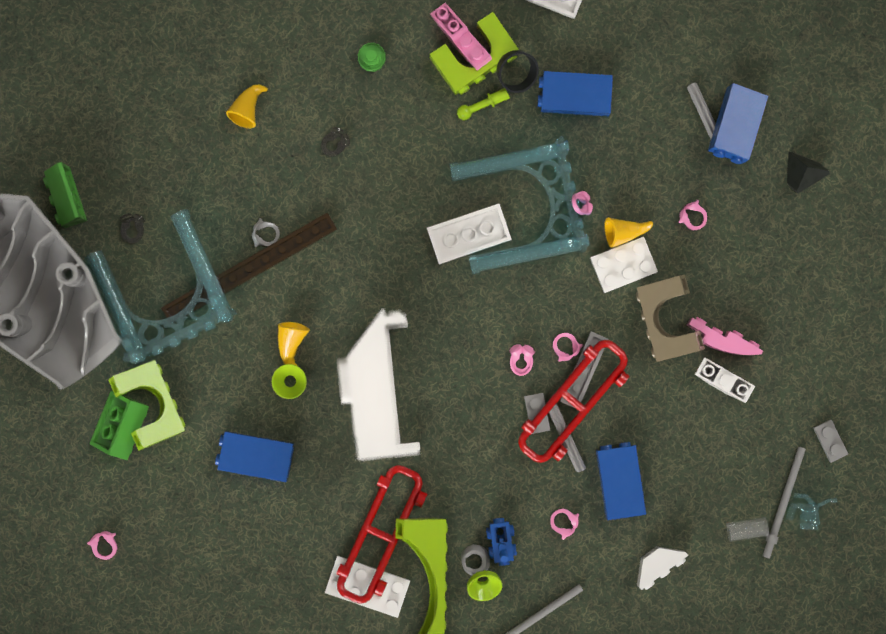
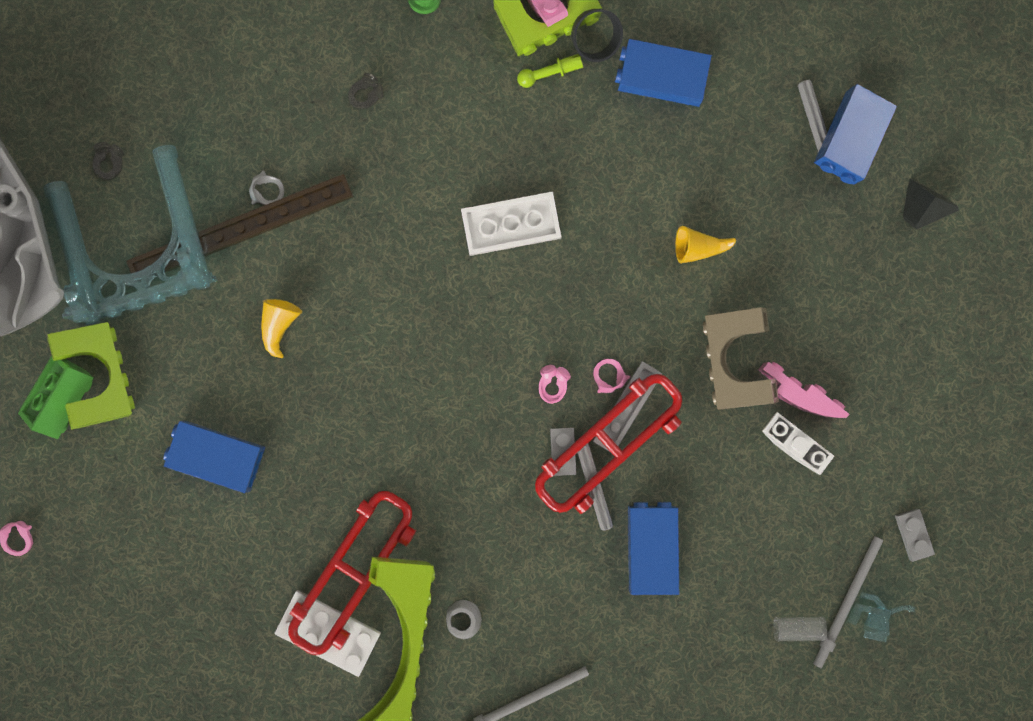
camera: 10 degrees right, 0 degrees up
(64, 195) = (30, 109): bright green slope -> none
(243, 108) = (260, 35): yellow hat -> none
(281, 388) = (257, 377): lime piece -> none
(369, 385) = (359, 395): white panel -> none
(484, 590) = (470, 657): lime piece -> none
(502, 547) = (497, 610): blue brick -> none
(519, 160) = (583, 143): clear light blue arch -> none
(563, 531) = (588, 584): bright pink piece -> none
(584, 198) = (656, 200): bright pink piece -> none
(623, 264) = (693, 287): white plate -> none
(657, 564) = (684, 656): white slope -> none
(684, 216) = (774, 242): bright pink piece -> none

